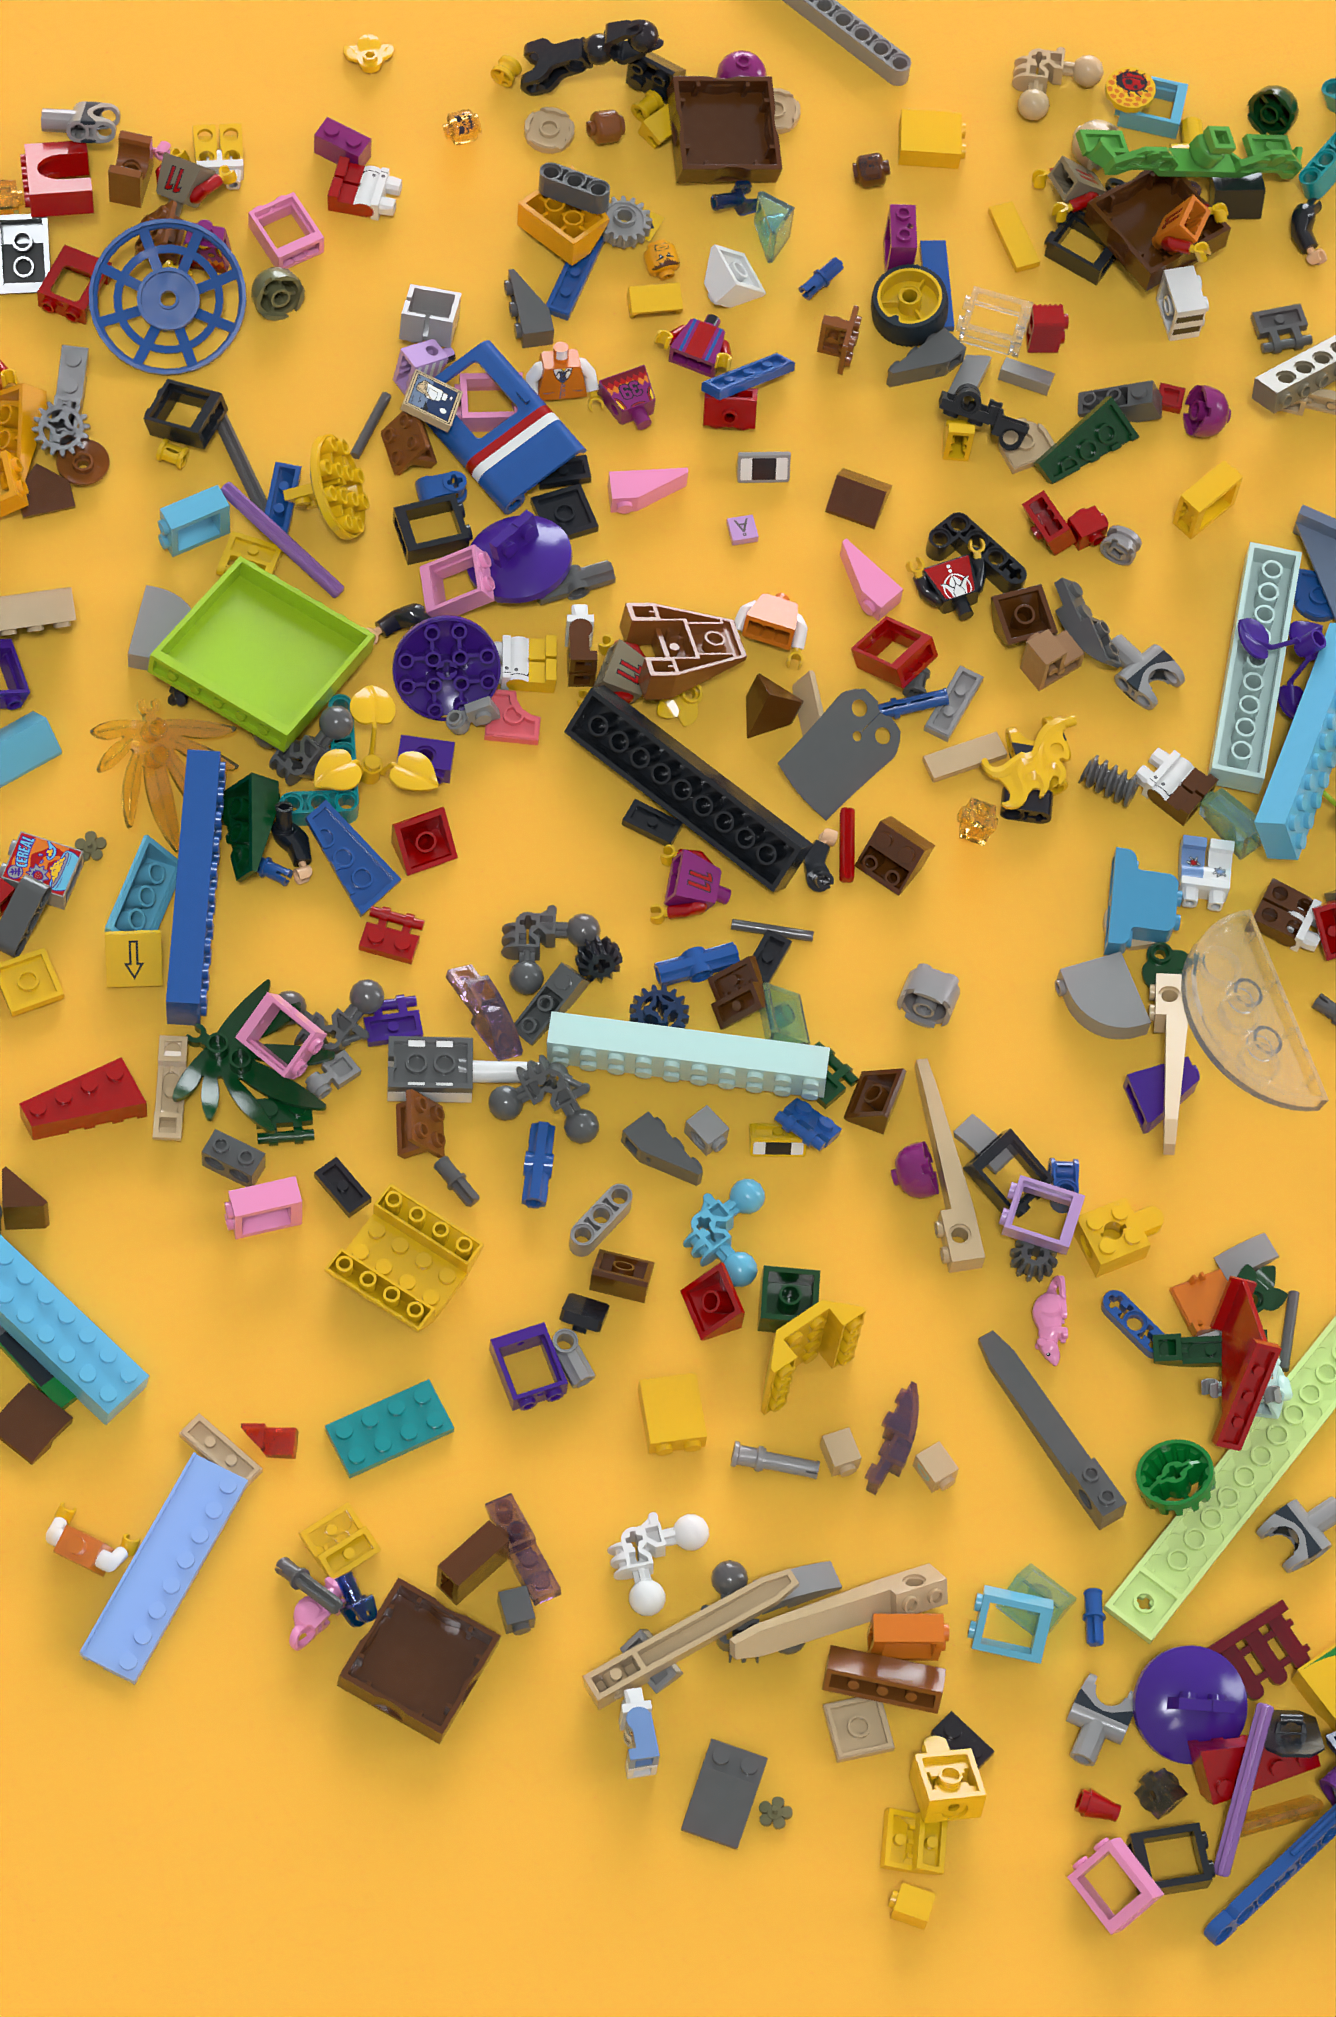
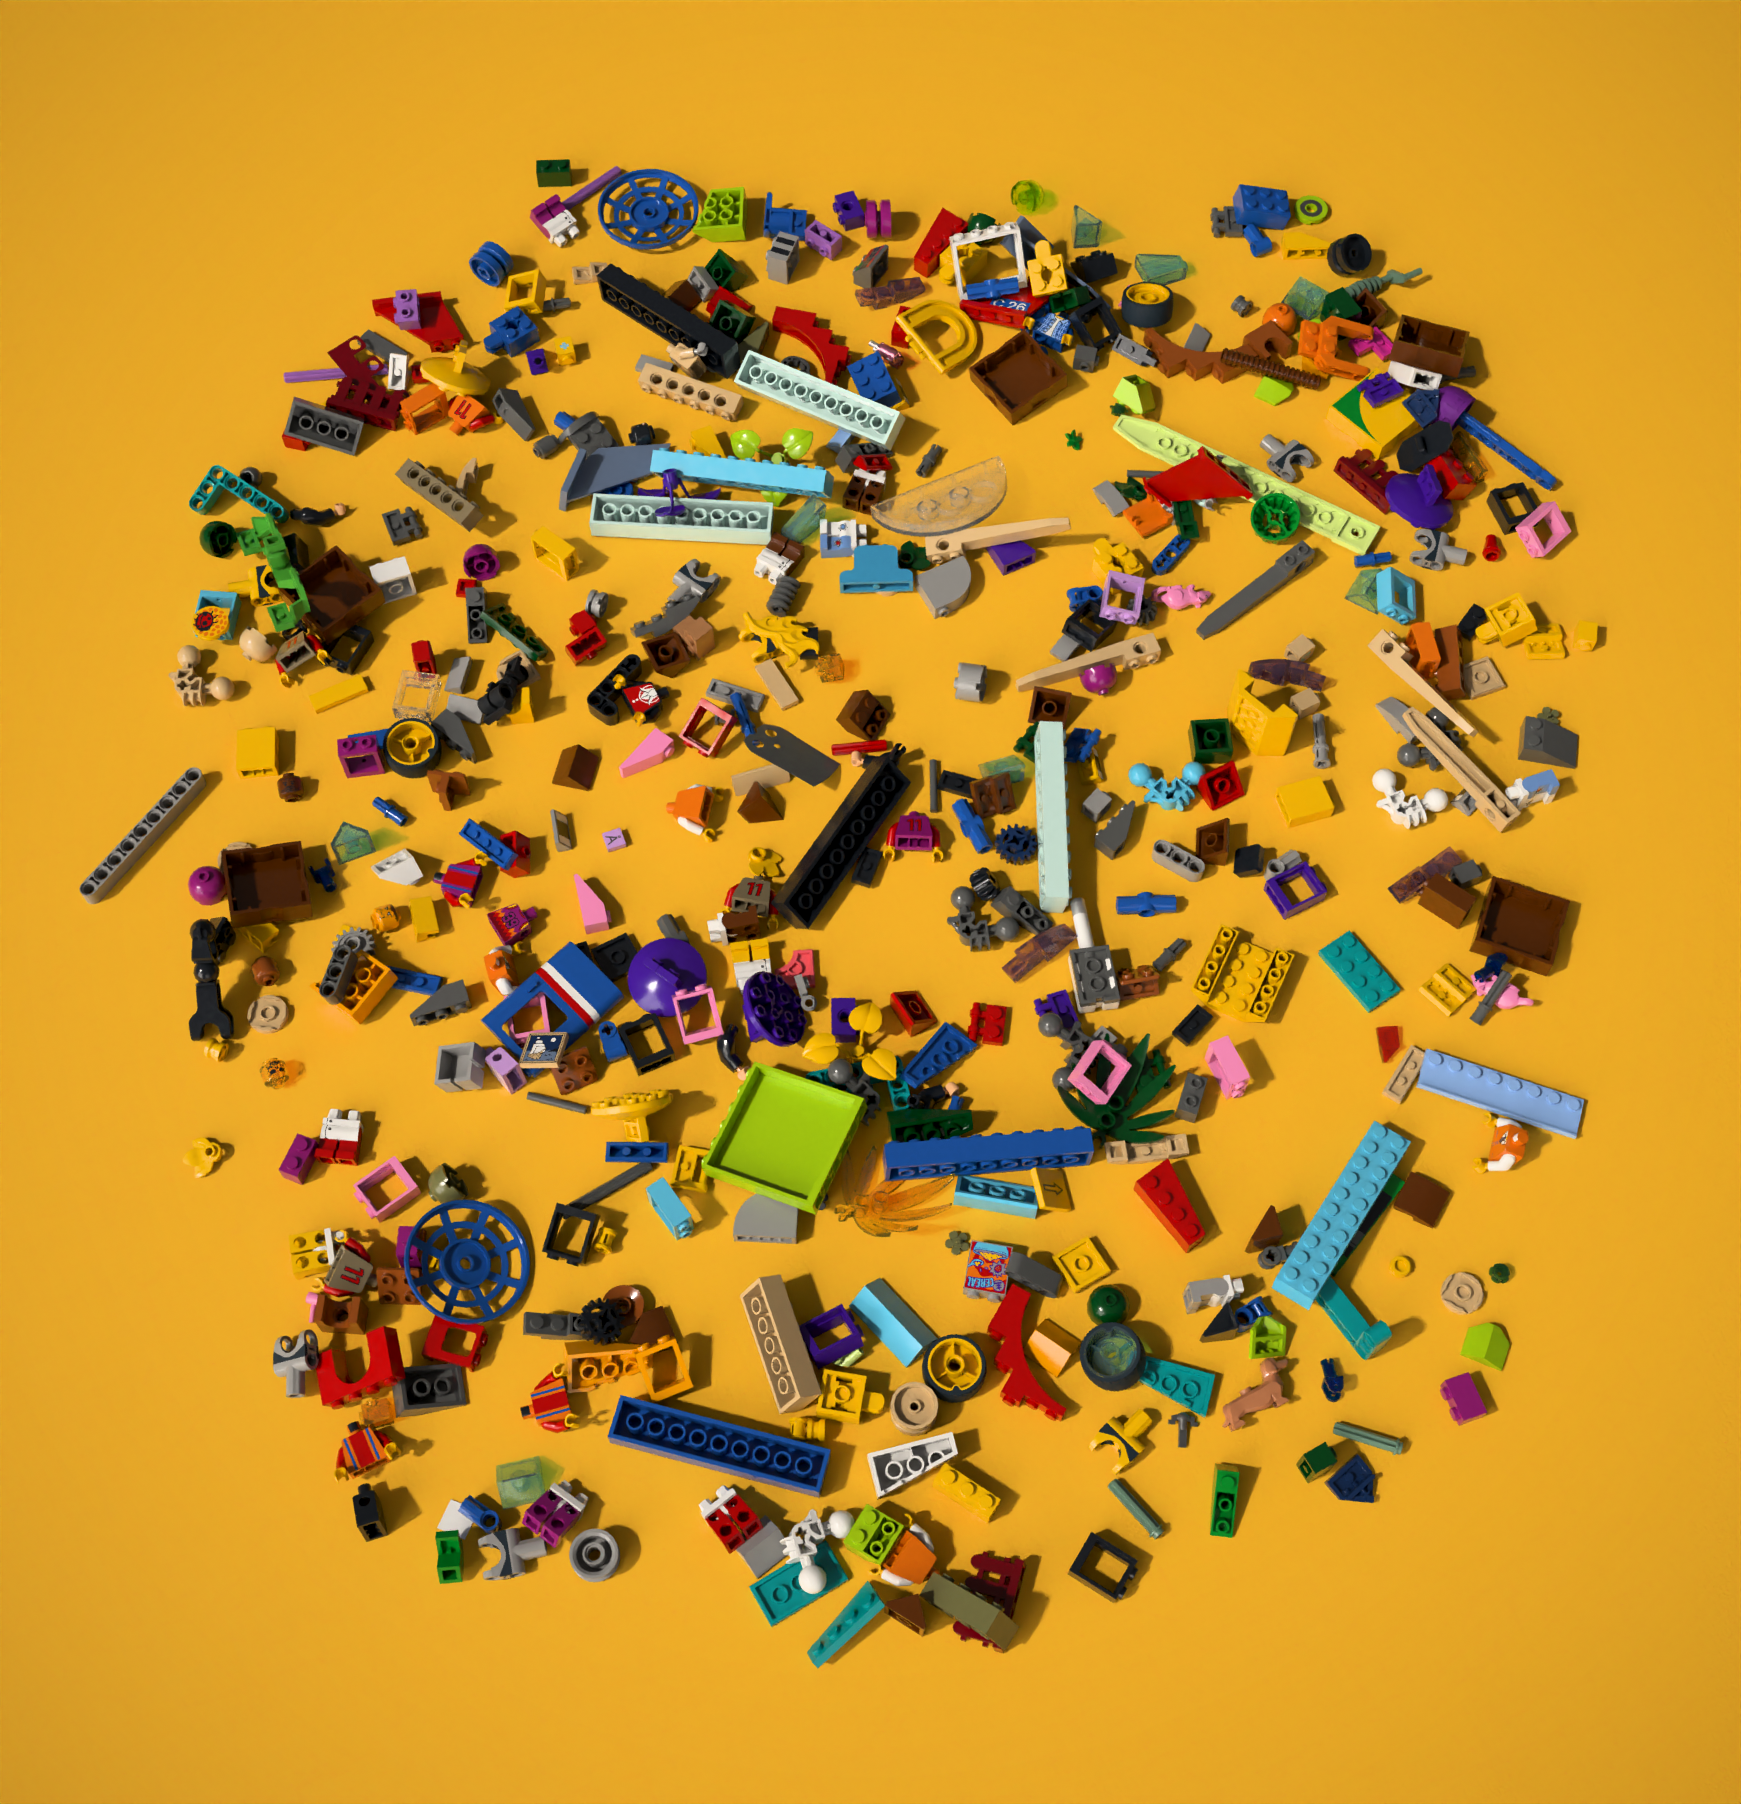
camera: 90 degrees left, 0 degrees up
(282, 540) = (676, 1143): medium lavender axle -> none
(507, 1102) = (1094, 903): dark grey piece -> none
(647, 106) = (241, 945): yellow bush -> none
(685, 645) = (725, 854): dark orange wedge -> none
(1160, 1792) = (1476, 513): clear smoke brick -> none
(1184, 225) = (343, 570): torso -> none
(1243, 1789) = (1468, 464): medium lavender axle -> none

